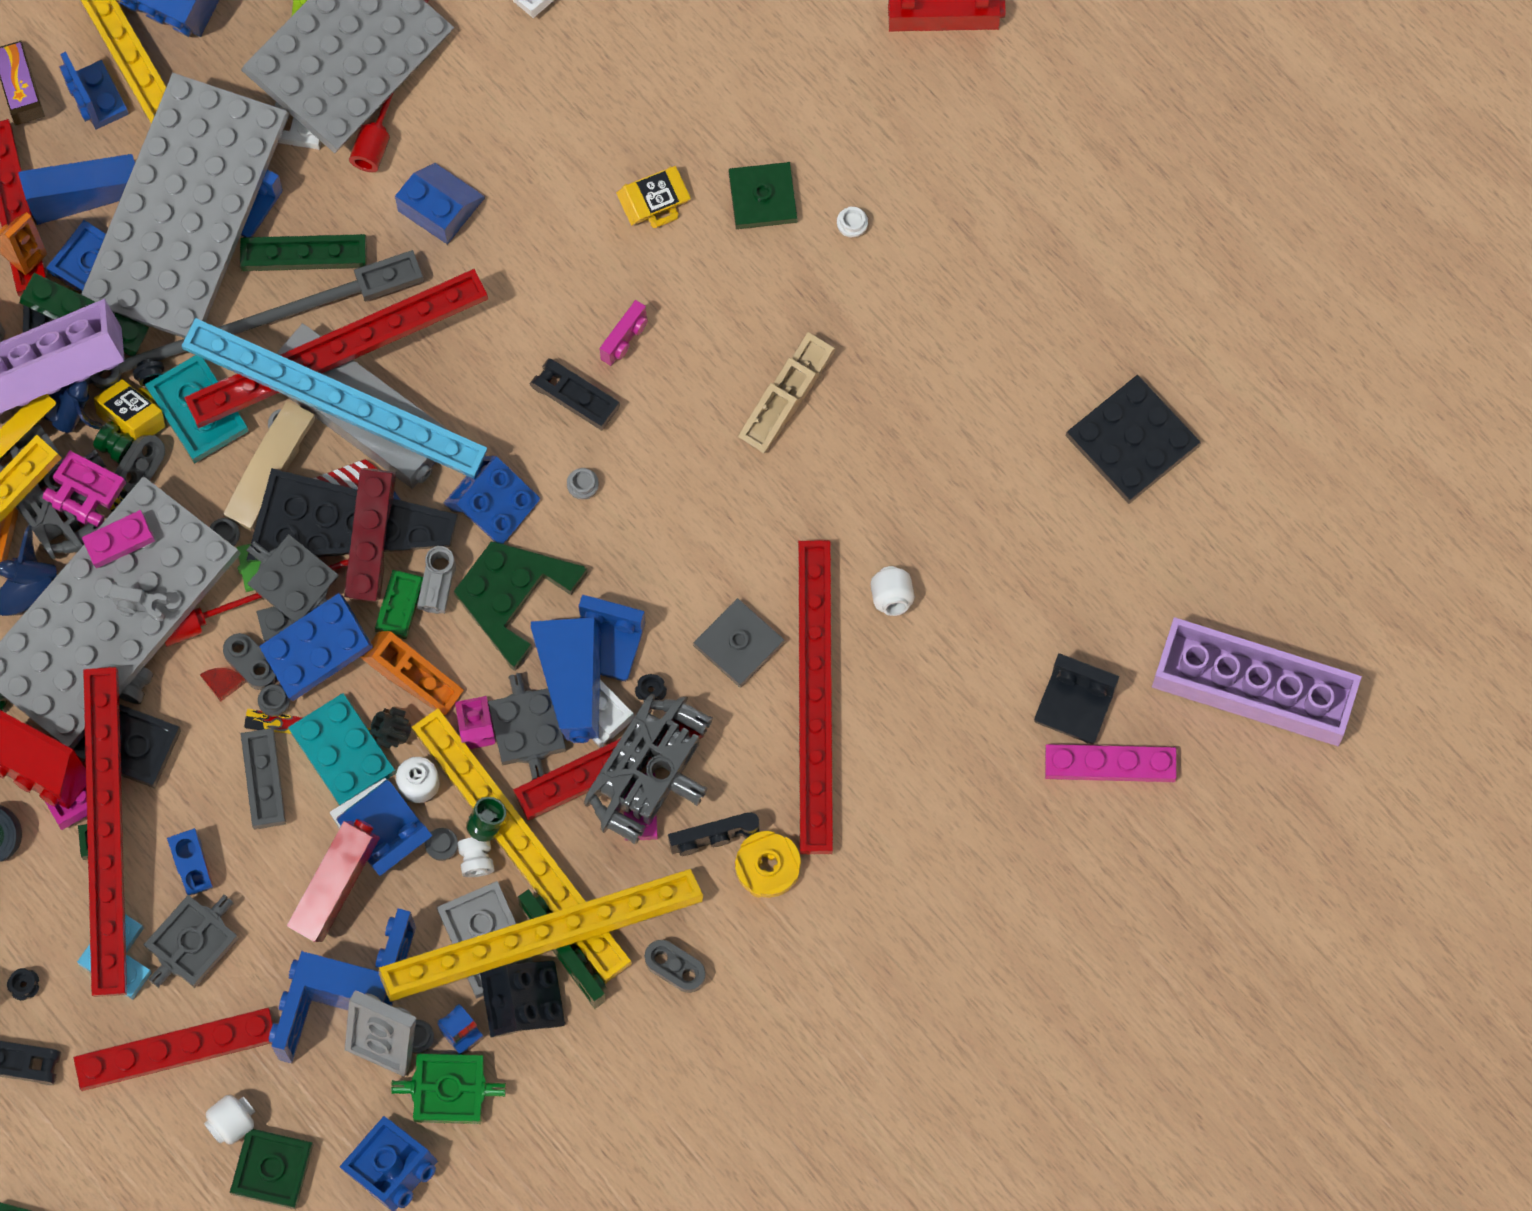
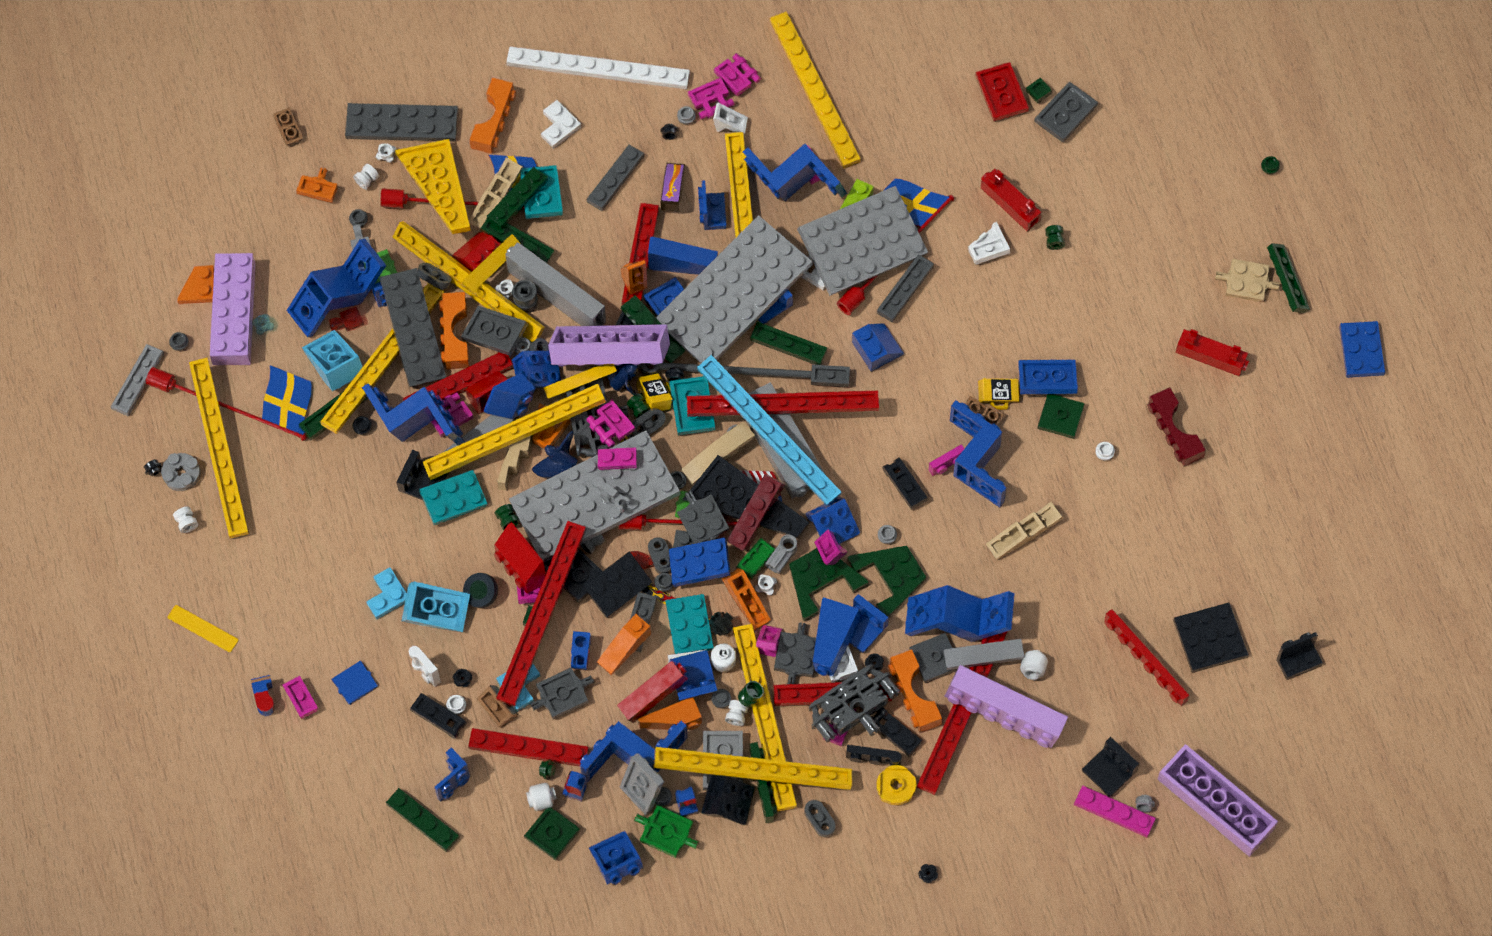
camera: 25 degrees right, 5 degrees down
(31, 1029) = (456, 704): none -> white plate
(86, 1145) = (458, 777): none -> blue bracket
(104, 1012) = (499, 711): none -> medium nougat slope
(203, 734) = (617, 584): none -> black plate
(220, 1071) = (547, 769): none -> dark green plate
(256, 824) = (624, 644): none -> orange slope
(276, 1080) = (575, 786): none -> blue leg
(392, 891) = (664, 718): none -> orange slope
(425, 631) = (762, 579): none -> white plate
(443, 96) = (905, 288): none -> dark grey plate
(506, 542) = (829, 548): none -> dark pink slope
(622, 532) = (897, 570): none -> dark green wing
(641, 241) = (990, 413): none -> medium nougat slope
(662, 319) = (977, 453): none -> blue bracket
(718, 144) = (1047, 376): none -> blue plate
(732, 782) = (897, 732): none -> black plate
(749, 560) = (959, 613): none -> blue bracket
(761, 735) = (924, 713): none -> orange arch
(811, 607) = (983, 654): none -> light grey tile
(880, 987) = (923, 873): none -> black plate
(882, 674) = (1005, 707): none -> lavender brick
(970, 166) = (1186, 446): none -> dark red arch
(1062, 513) = (1150, 662): none -> red plate
(1150, 732) = (1144, 803): none -> light grey plate
(1276, 413) = (1299, 656): none -> black bracket

